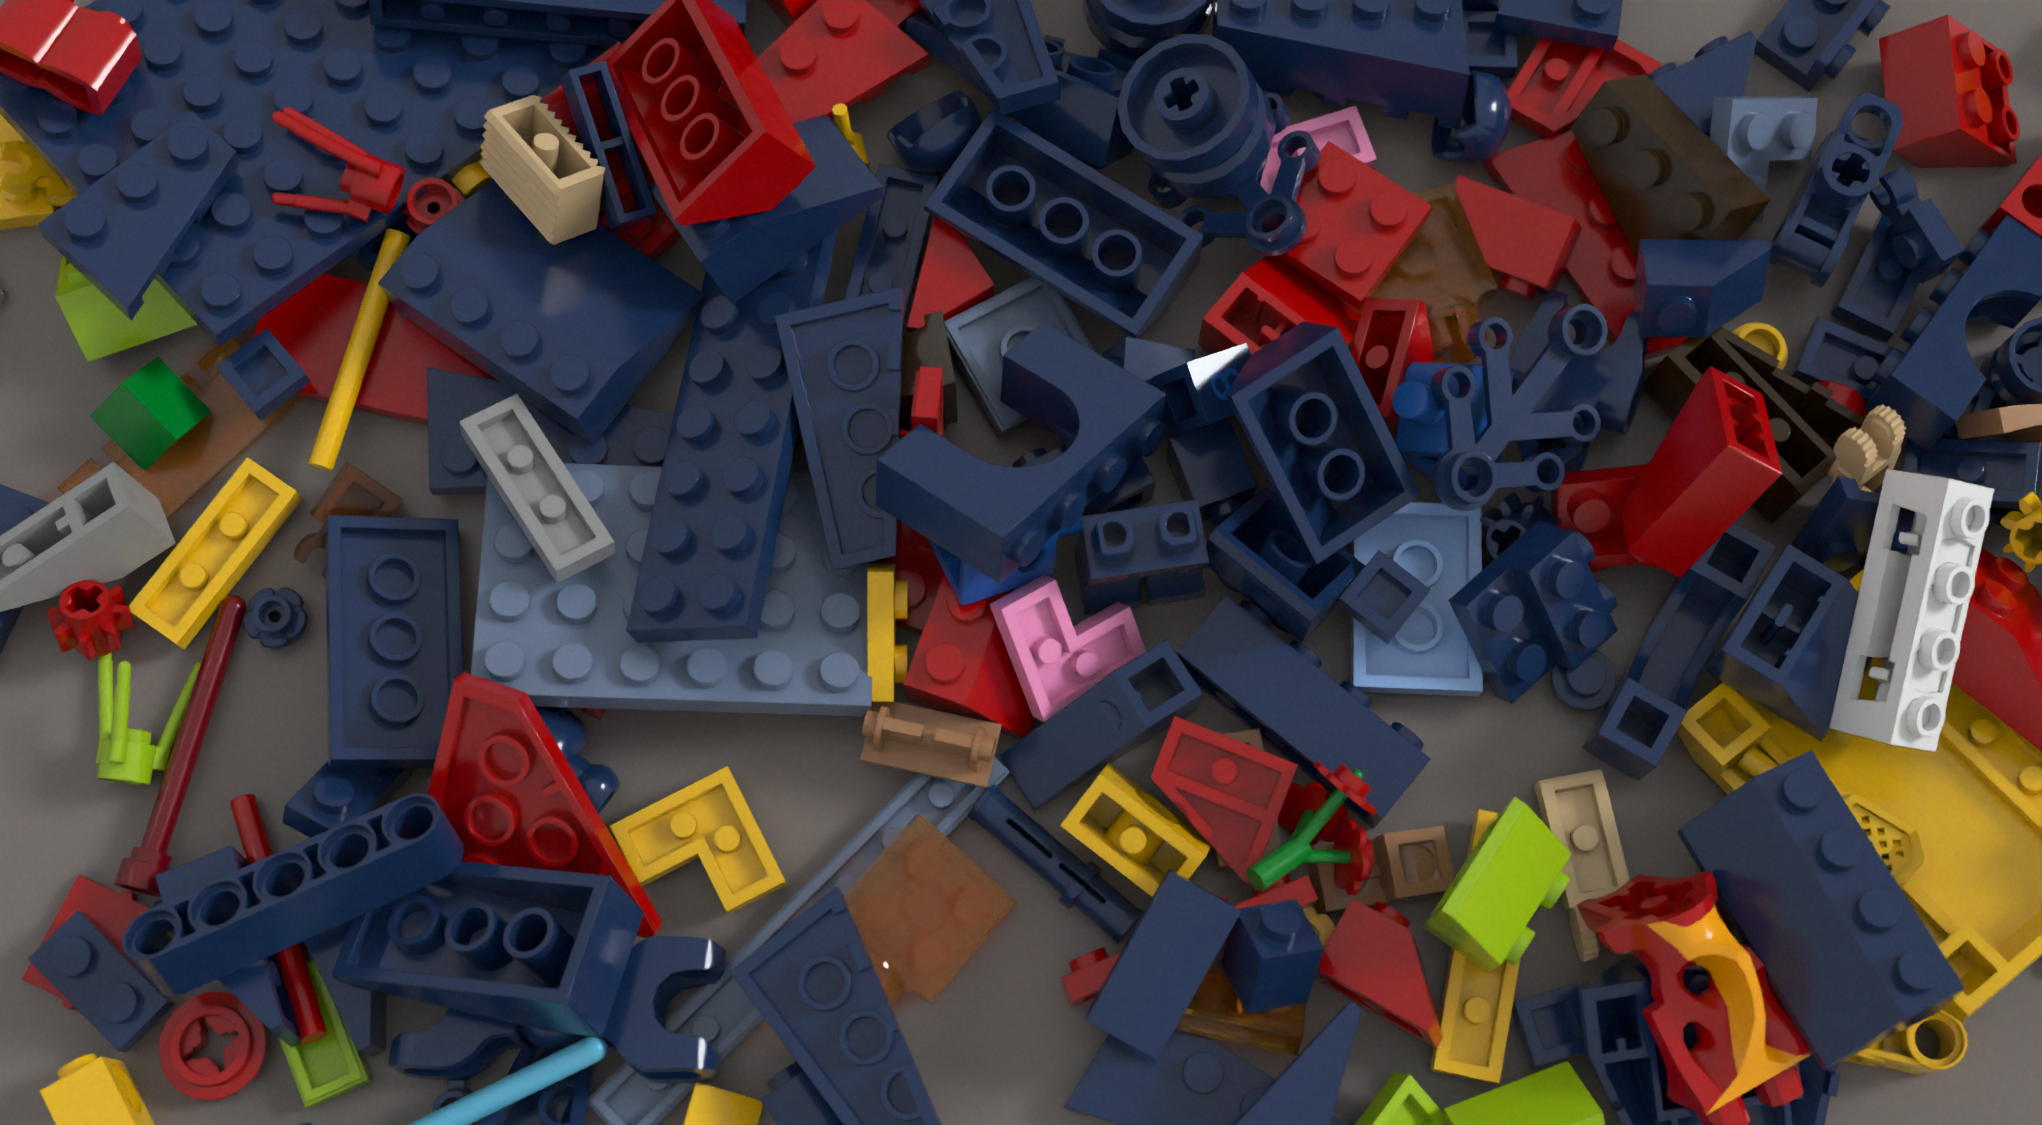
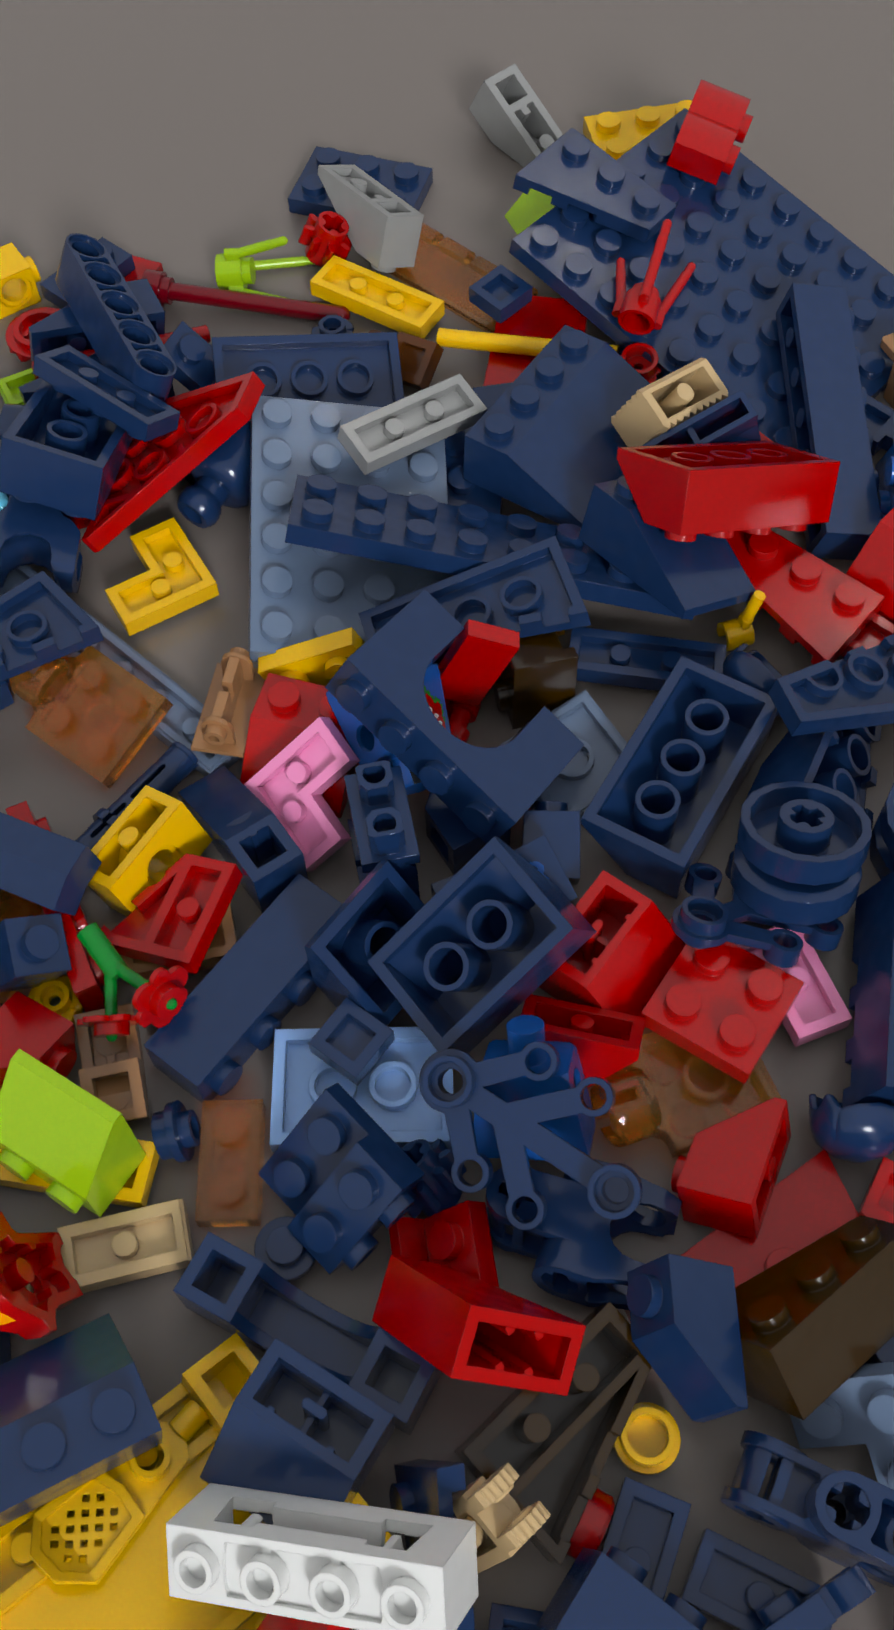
camera: 90 degrees right, 15 degrees down
(150, 413) = (474, 248): green panel -> none
(452, 889) = (106, 393): none -> dark blue plate
(948, 278) = (620, 693): red slope -> none
(1463, 791) = (175, 1132): none -> dark blue plate
(1489, 738) = (230, 1163): none -> clear orange plate

